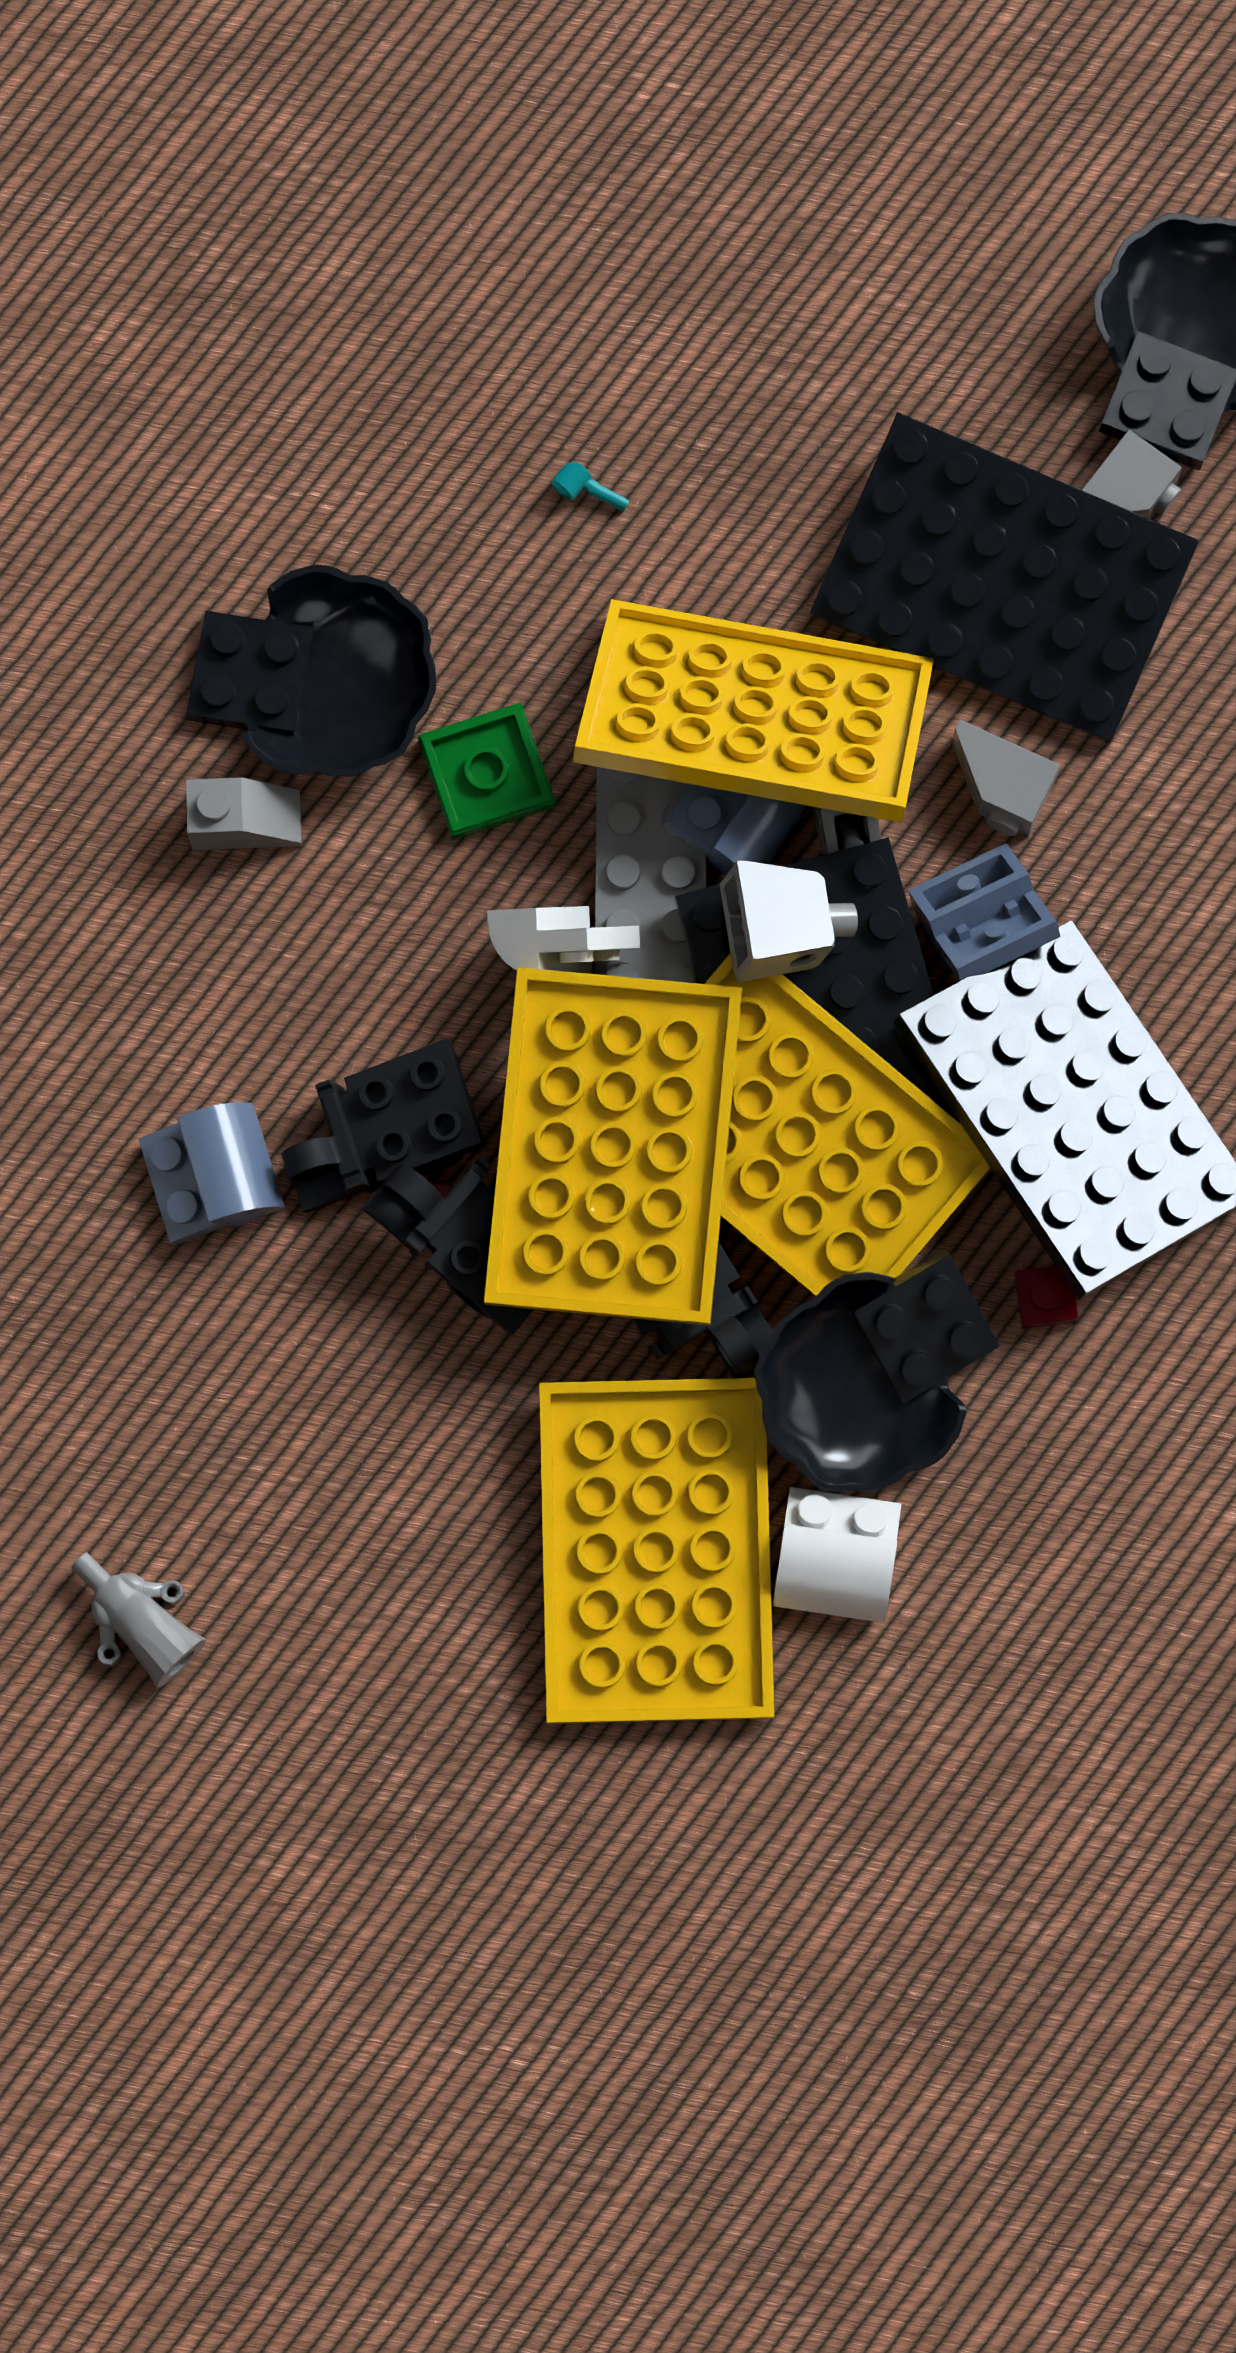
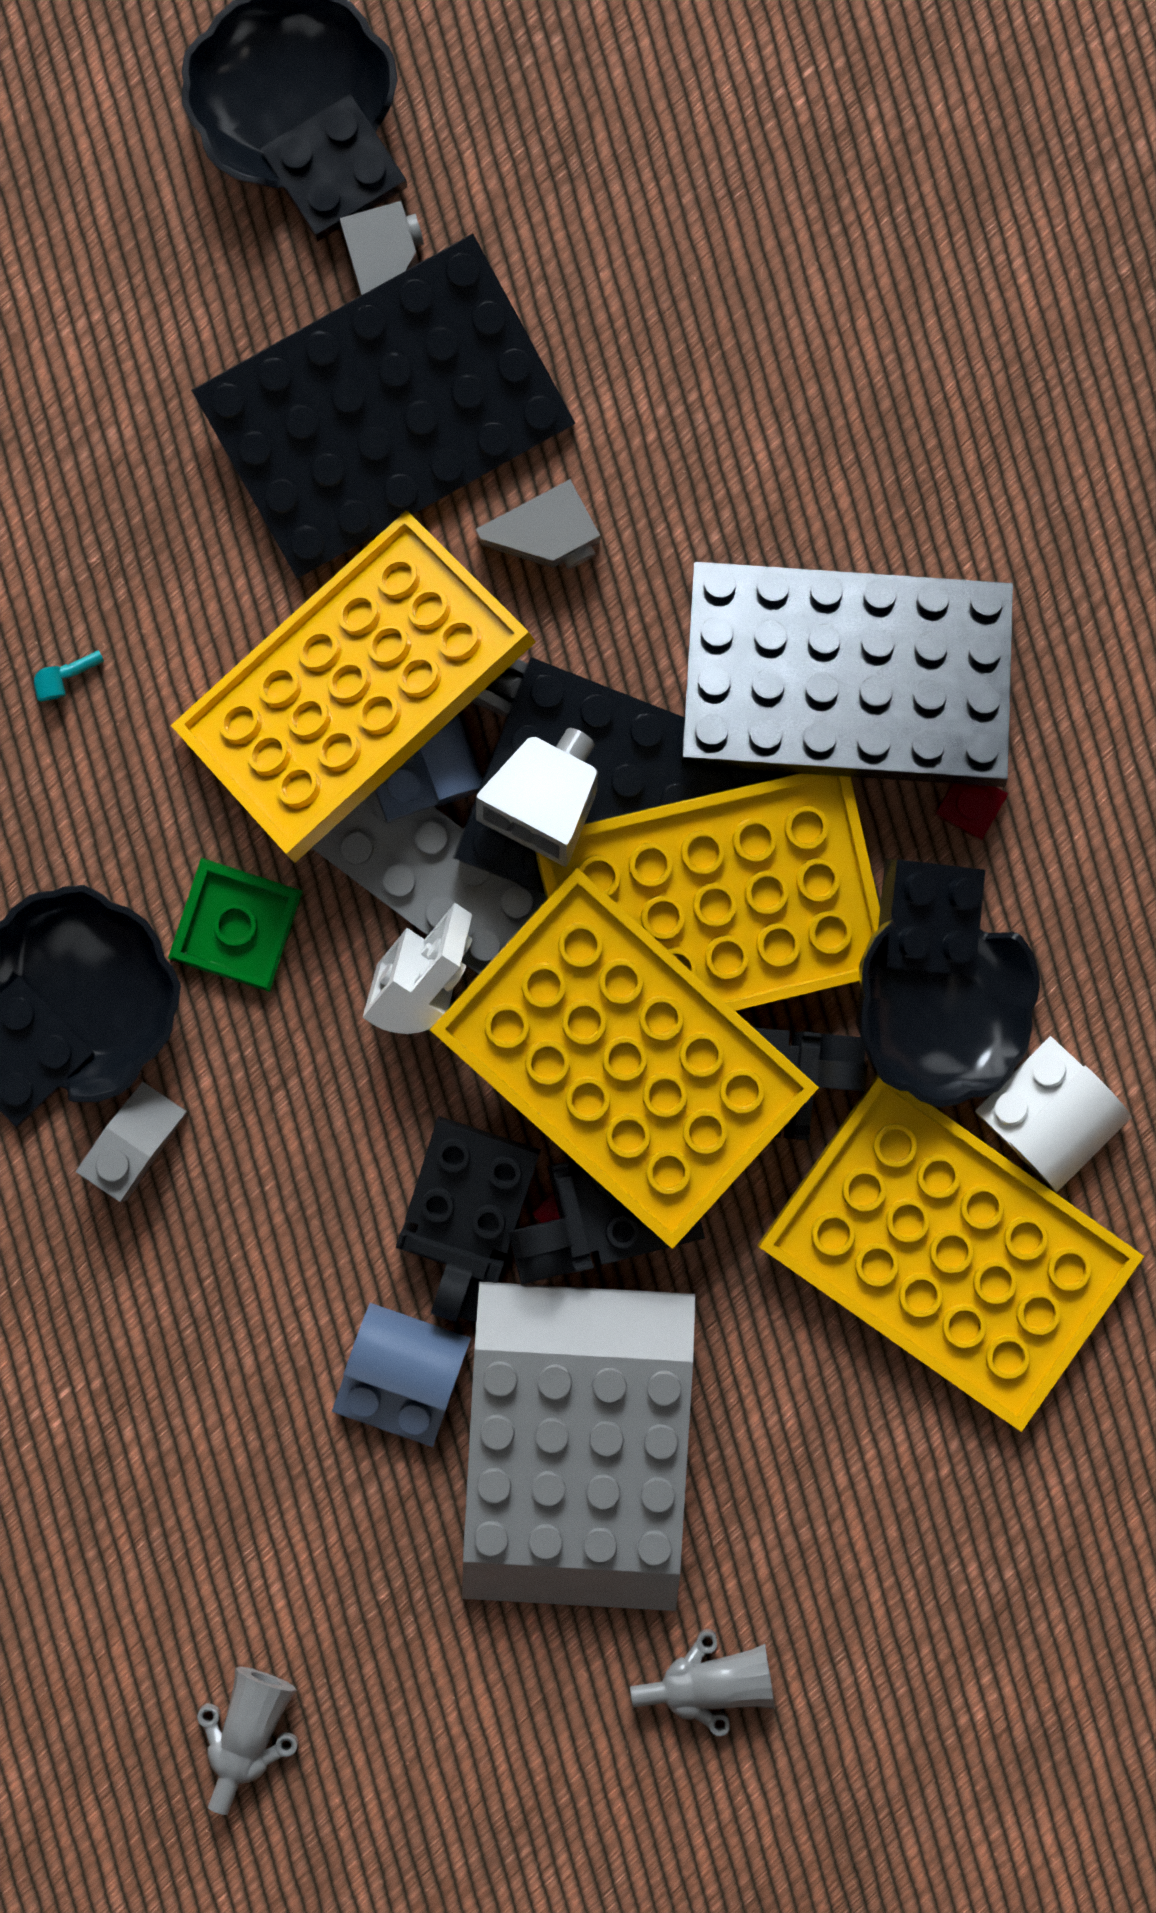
camera: 55 degrees left, 10 degrees up
(256, 1356) = (578, 1446): none -> light grey slope
(983, 914) = (642, 627): sand blue brick -> none

